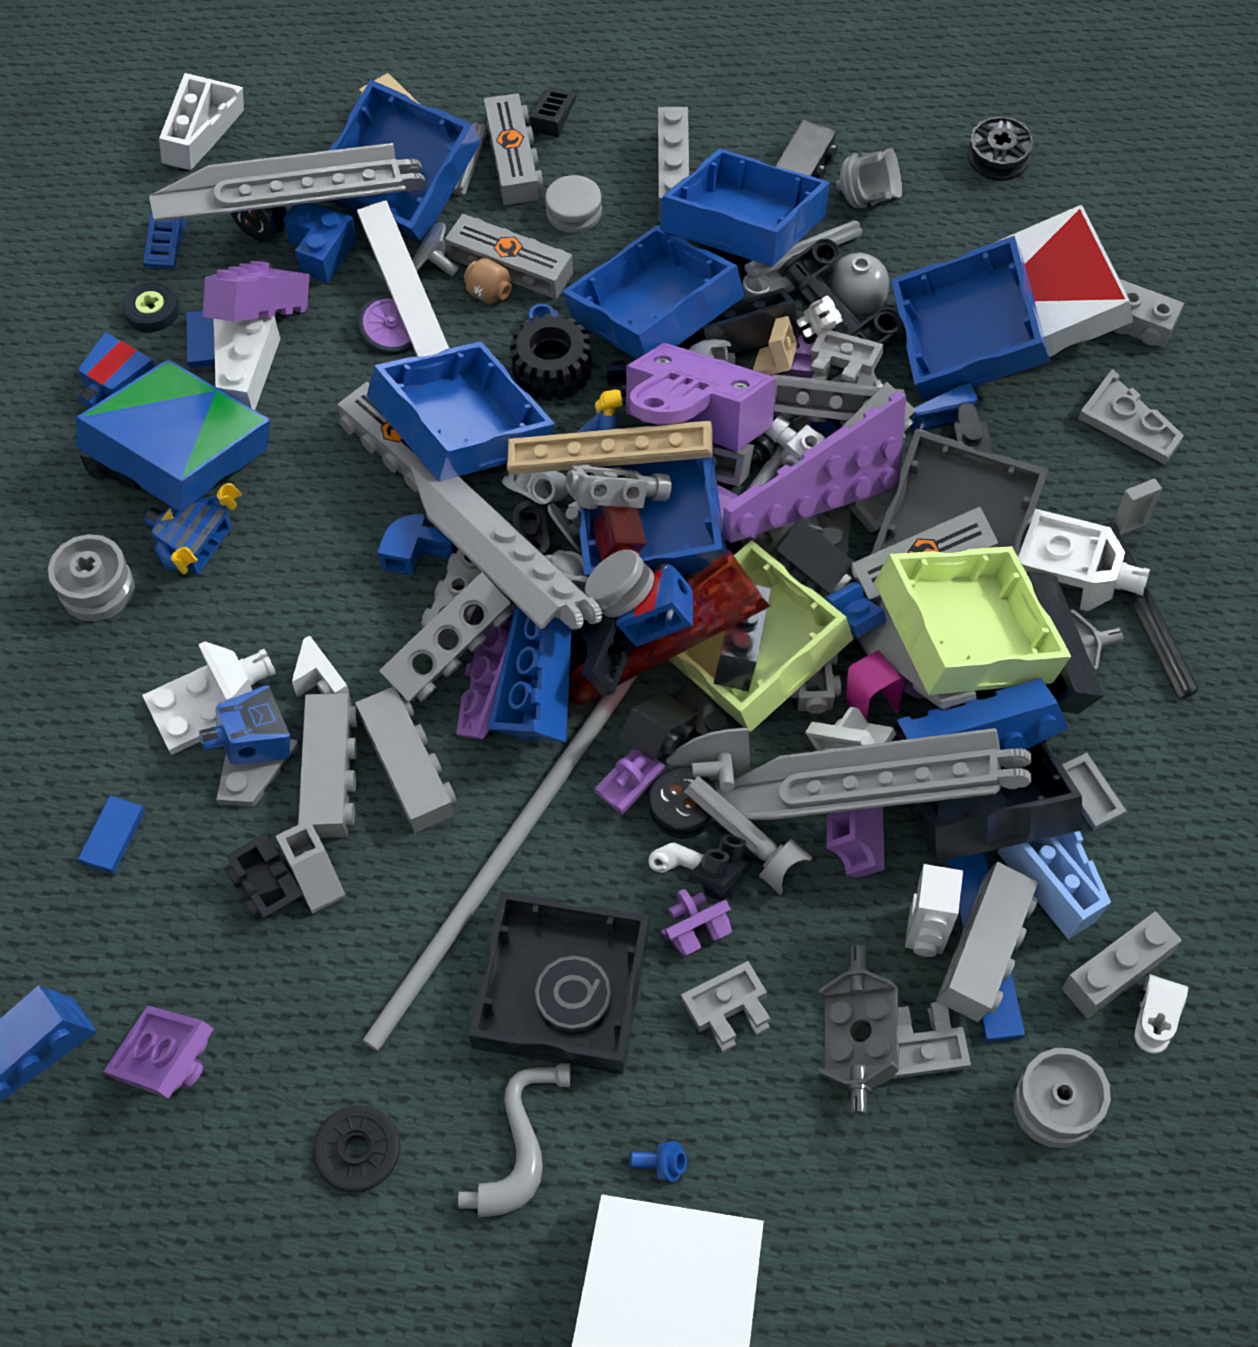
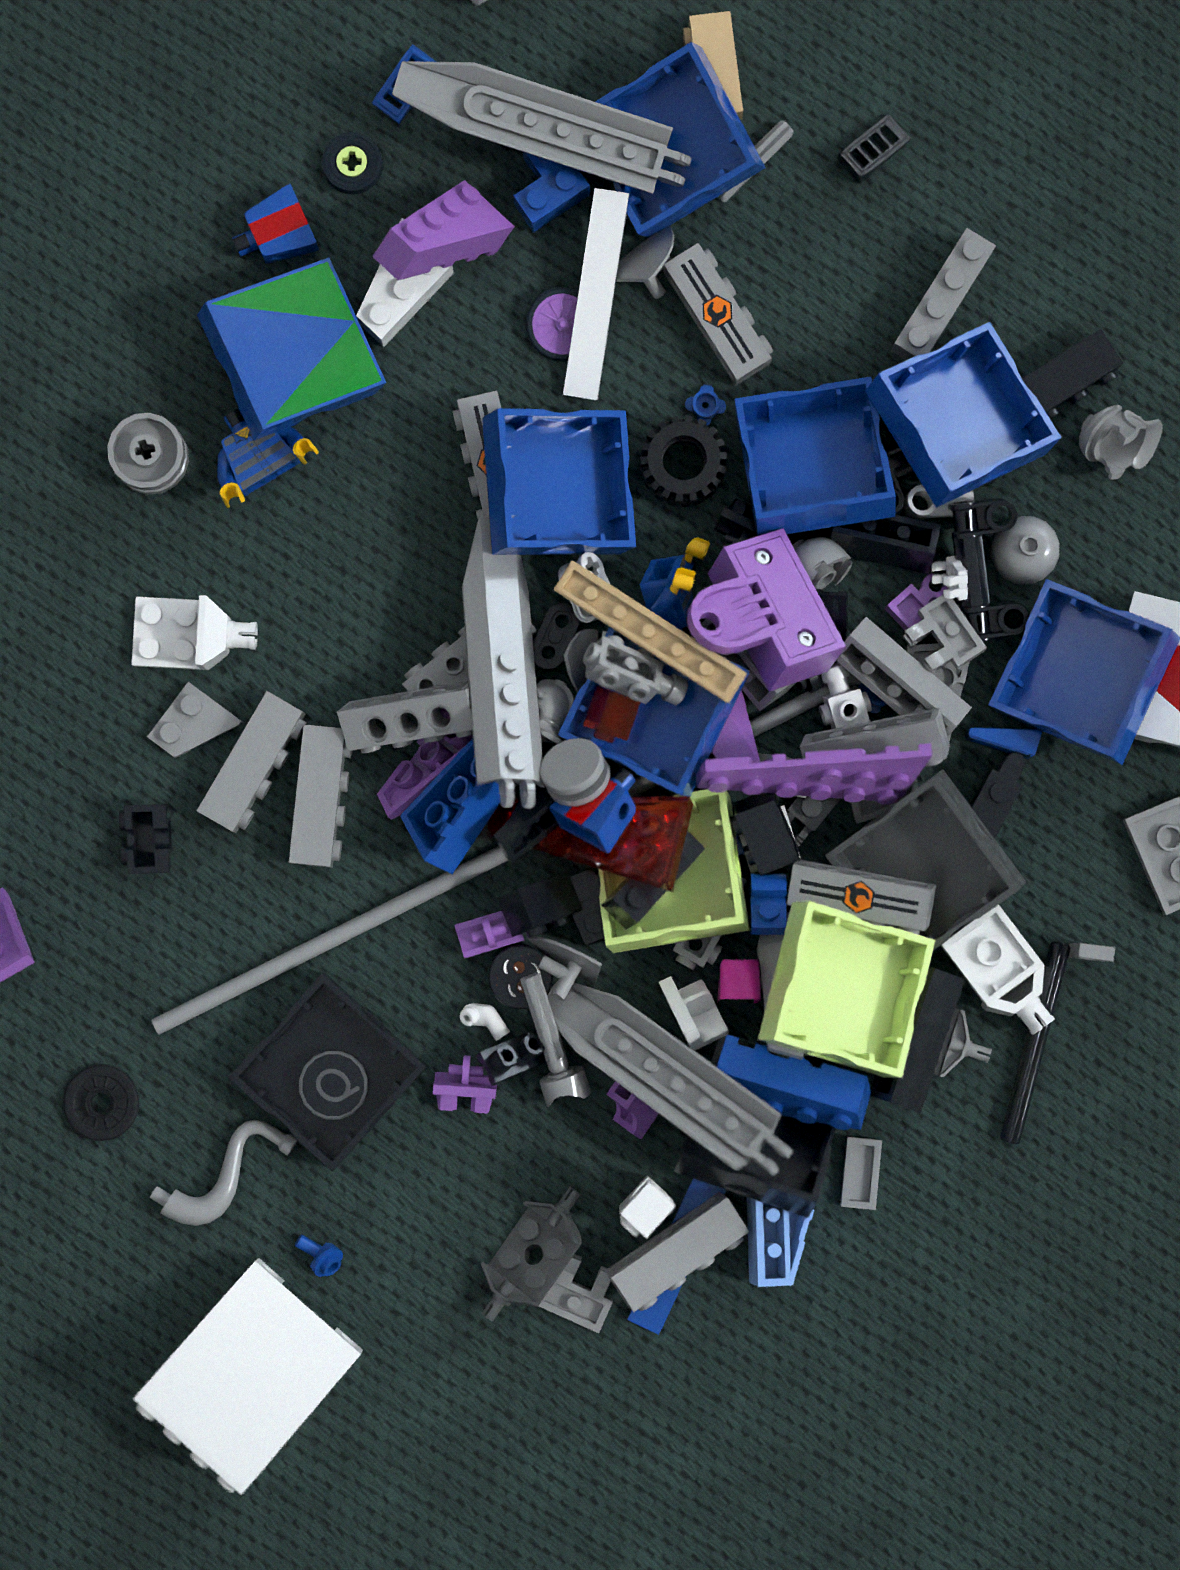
camera: 30 degrees right, 25 degrees up
(111, 834) = (47, 714): blue tile -> none
(200, 340) = (383, 217): blue tile -> none
(249, 729) = (202, 696): blue torso -> none
(310, 866) = (188, 851): light grey slope -> none
(315, 670) = (292, 660): white slope -> none
(409, 539) = (436, 582): blue brick -> none
(487, 281) = (678, 333): medium nougat head -> none
(511, 149) = (799, 179): light grey brick -> none
(573, 204) = (818, 285): light grey head -> none
(725, 996) = (449, 1160): light grey plate -> none
(781, 349) = (886, 591): tan panel -> none
(839, 235) = (1011, 487): light grey axle -> none
(1059, 1075) = (642, 1381): light grey wheel -> none
(1121, 964) = (771, 1331): light grey brick -> none
(1160, 1009) = (779, 1379): white piece -> none

